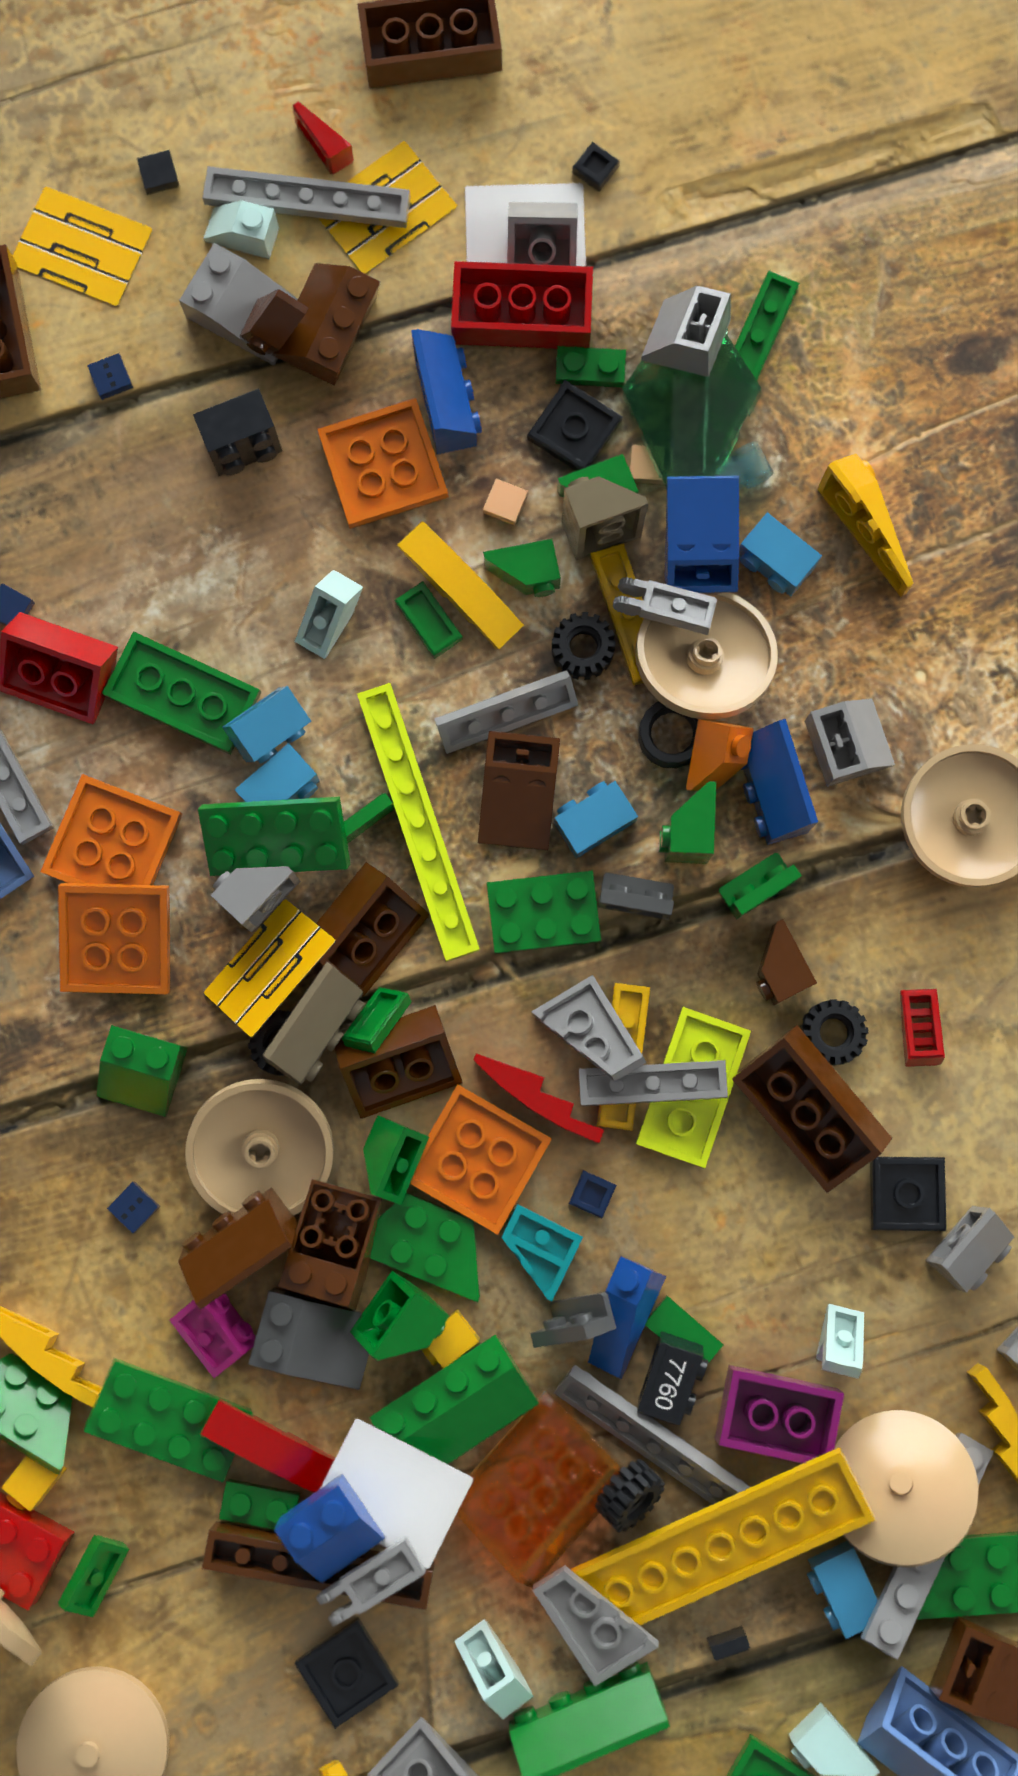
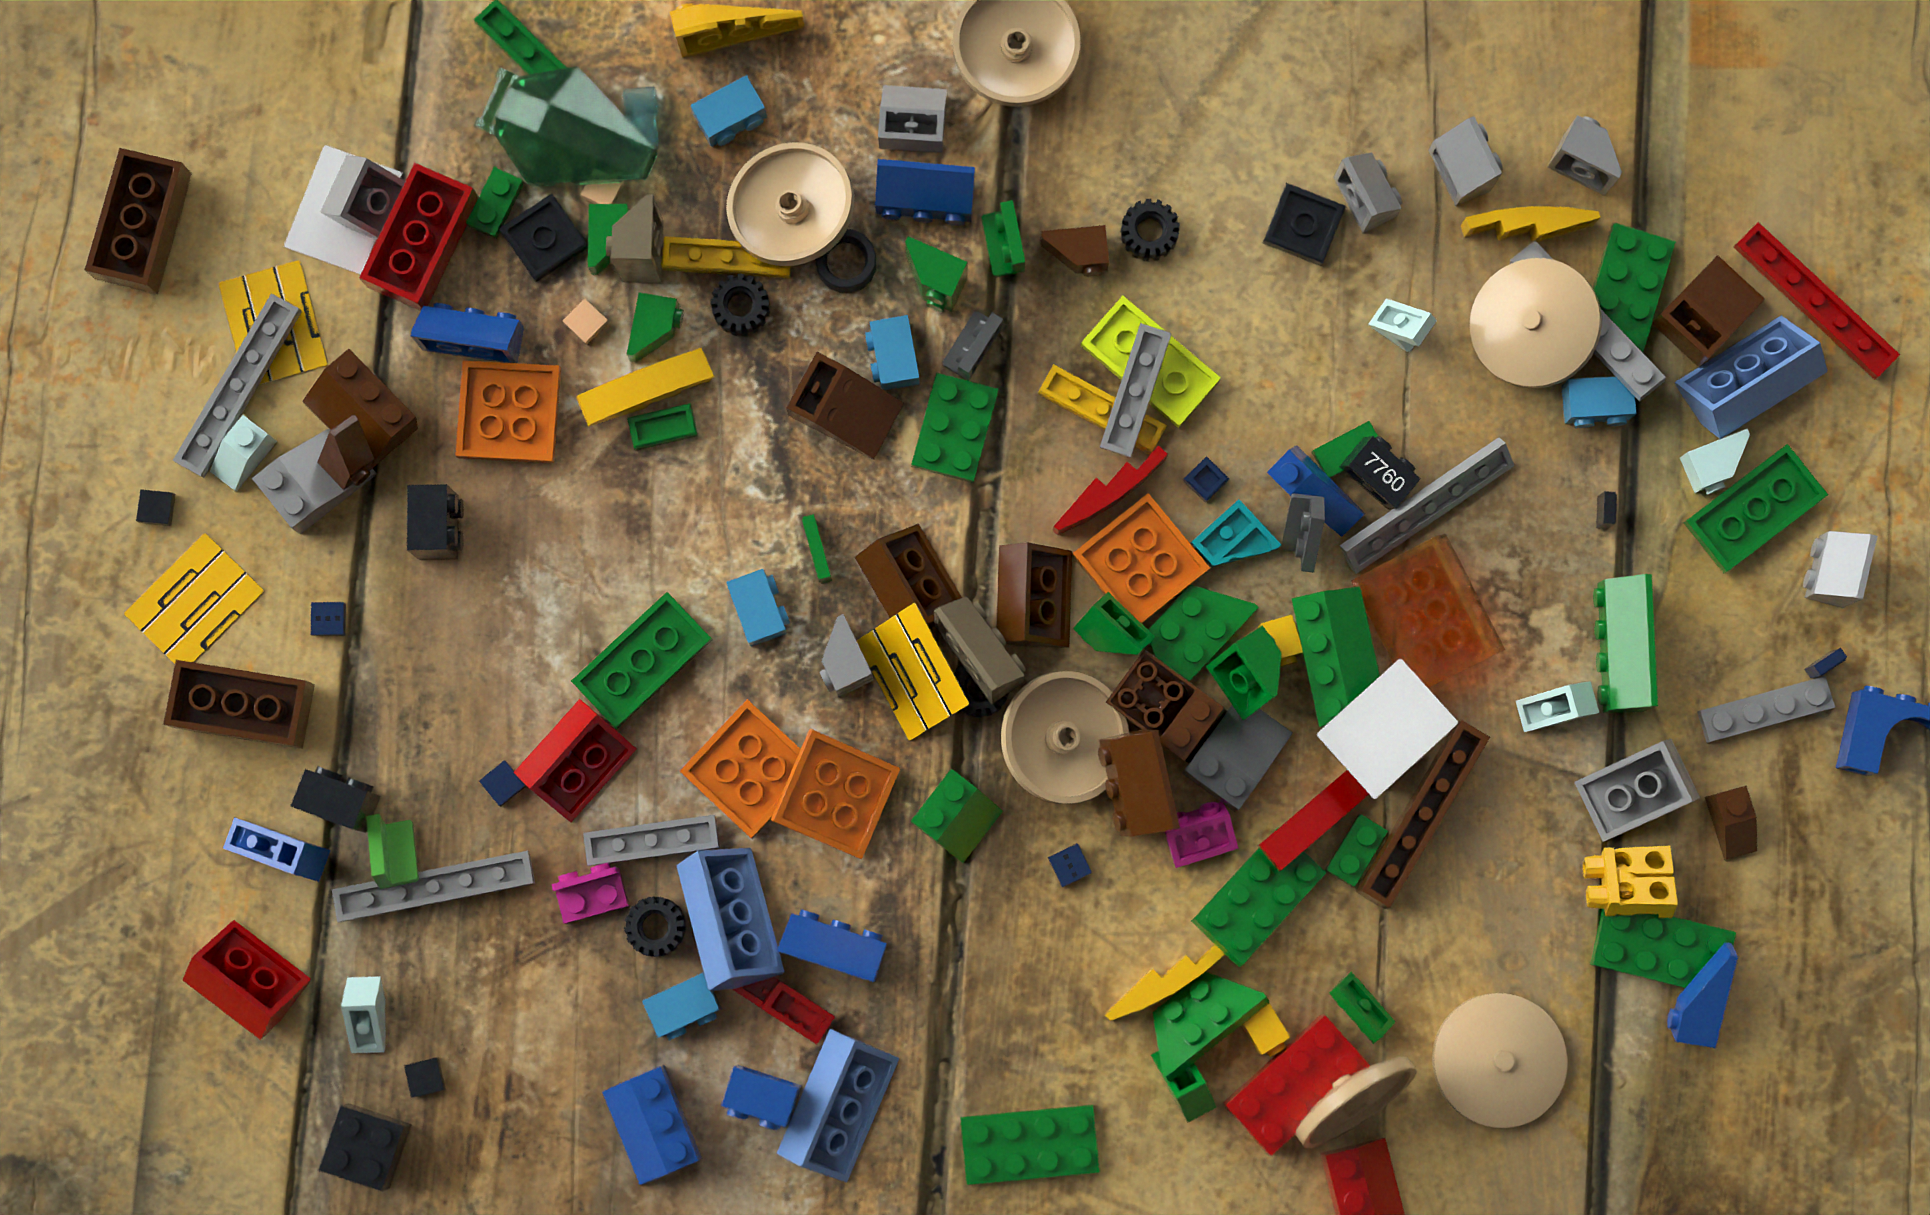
camera: 70 degrees left, 0 degrees up
(267, 725) = (702, 595): dark azure brick -> none
(275, 834) = (802, 623): green plate -> none
(327, 143) = (196, 349): red slope -> none
(328, 613) = (624, 508): light aqua slope -> none
(328, 1530) = (1397, 787): blue slope -> none
(346, 1673) = (1517, 829): black tile -> none
(374, 1580) = (1451, 767): light grey hinge -> none
(376, 1020) = (993, 597): green tile -> none
(418, 822) = (835, 501): neon yellow plate -> none
(506, 711) = (771, 390): light grey plate -> none
(591, 1625) = (1552, 611): light grey wing -> none
(592, 1028) = (1069, 422): light grey wing -> none
(595, 166) = (315, 127): black tile -> none
(630, 1495) = (1461, 540): black tyre -> none
(666, 604) = (737, 218): light grey hinge -> none
(689, 330) = (508, 105): light grey slope -> none
(702, 533) = (689, 166): blue slope -> none
(717, 752) = (880, 227): orange slope -> none
(731, 1539) = (1526, 482): yellow plate -> none
(778, 1415) = (1443, 397): magenta brick -> none
(812, 1109) = (1206, 270): reddish brown brick -> none
(921, 1058) = (1200, 153): red slope -> none

